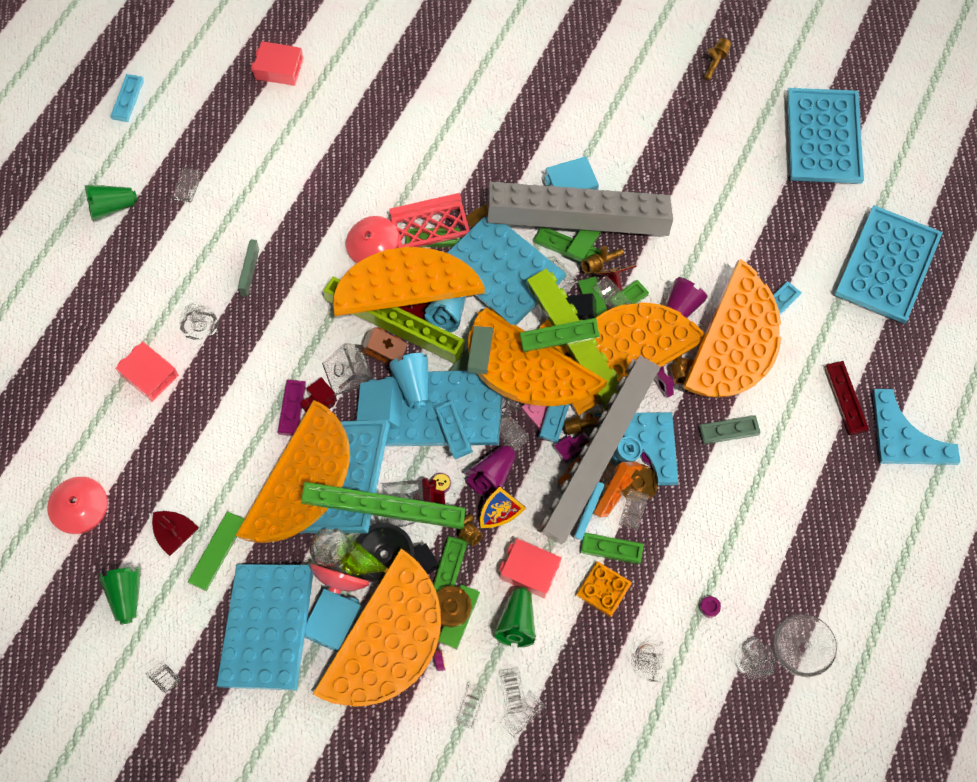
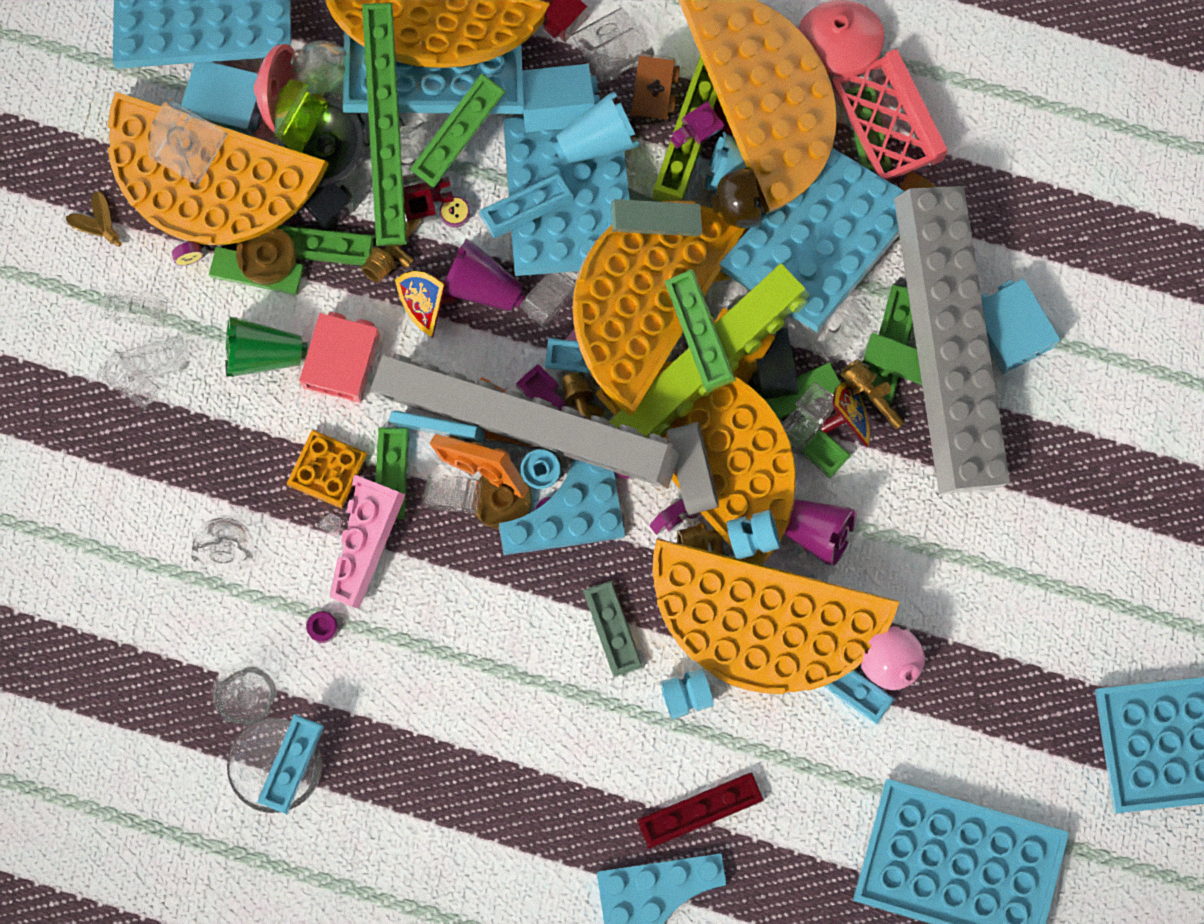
camera: 80 degrees right, 10 degrees up
(365, 645) = (183, 141): none -> clear slope
(396, 462) = (457, 130): none -> bright green tile
(405, 721) = (100, 225): none -> pearl gold piece
(420, 320) = (699, 124): none -> magenta plate
(474, 302) = (738, 199): none -> dark brown cylinder
(622, 358) = (693, 469): none -> light grey beam
(643, 589) = (331, 524): none -> clear plate
(650, 565) = (369, 526): none -> bright pink wing
(692, 323) = (753, 534): none -> medium azure wheel
(770, 271) = (894, 659): none -> bright pink cylinder
(777, 391) = (686, 693): none -> medium azure wheel
(807, 633) = (290, 764): none -> medium azure tile

